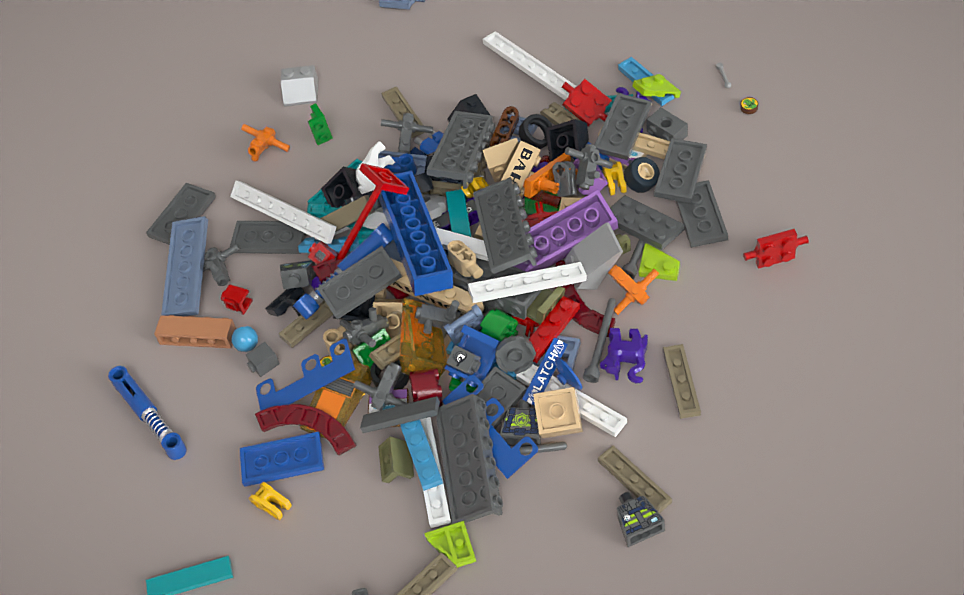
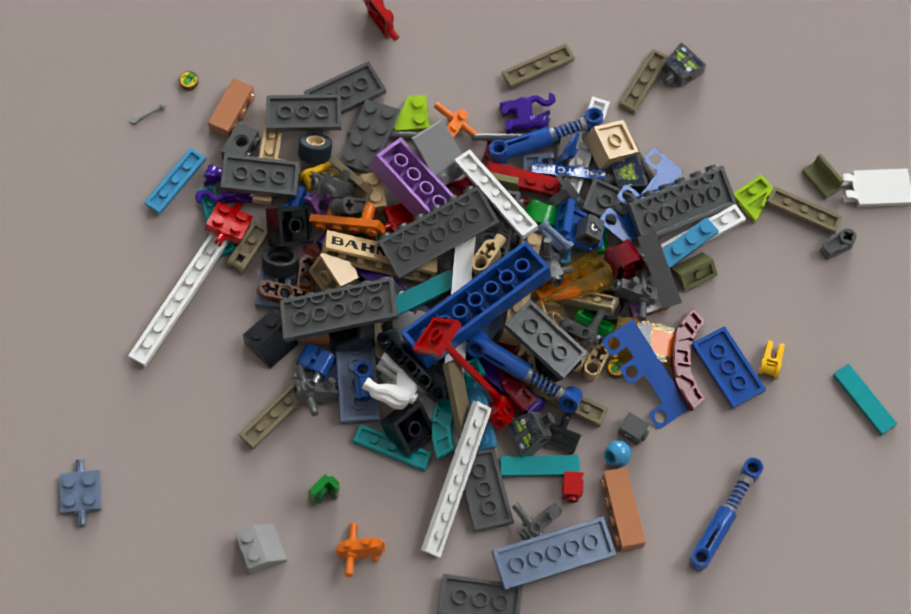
camera: 125 degrees left, 15 degrees up
(268, 284) = (538, 465): none -> teal tile
(587, 357) = (503, 150): none -> blue piece
(608, 187) = (352, 177): none -> dark tan tile
(655, 86) = (193, 161): lime wing -> none
(708, 127) = (231, 108): none -> nougat brick

